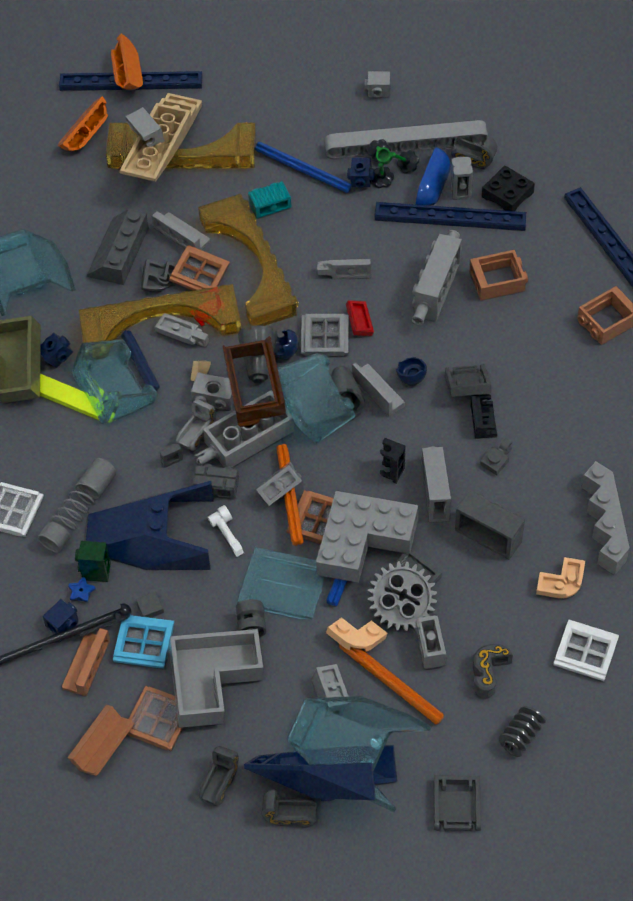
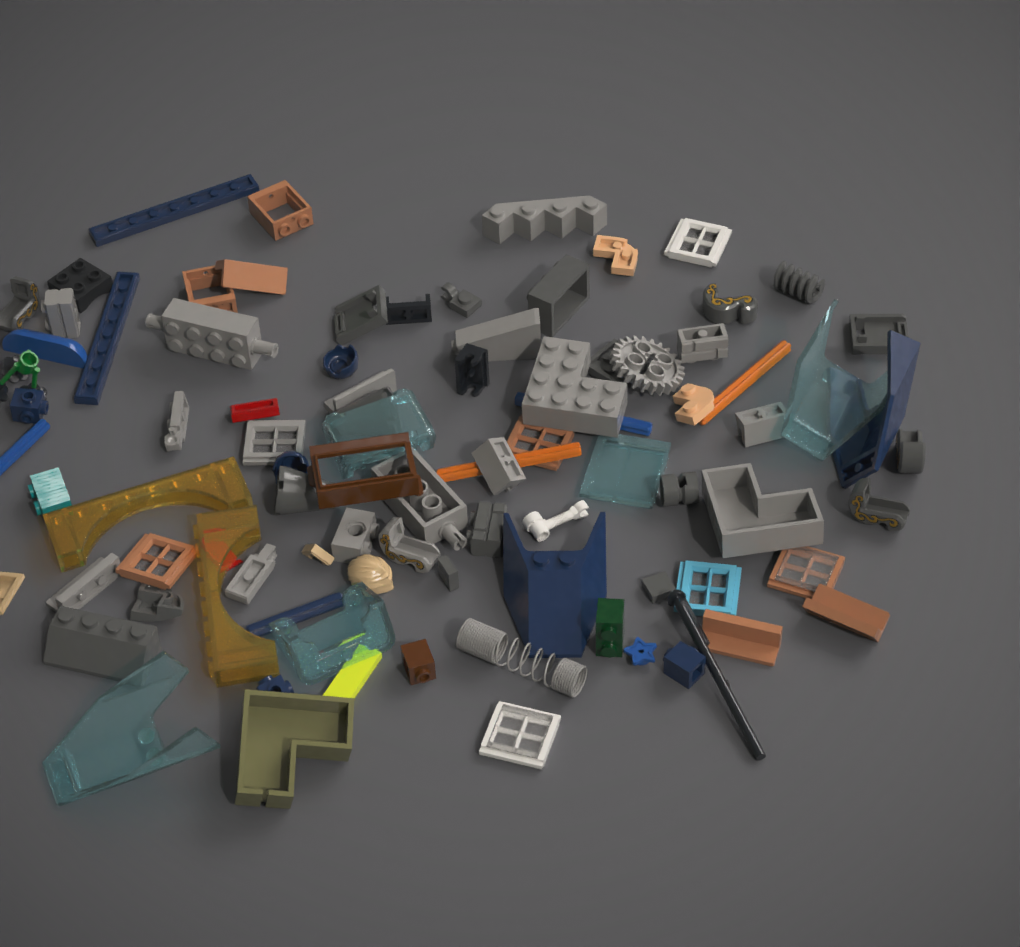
camera: 90 degrees left, 10 degrees down
(82, 439) = (418, 662): none -> reddish brown brick
(175, 405) = (372, 572): none -> tan hair
(511, 298) = (252, 276): none -> nougat panel

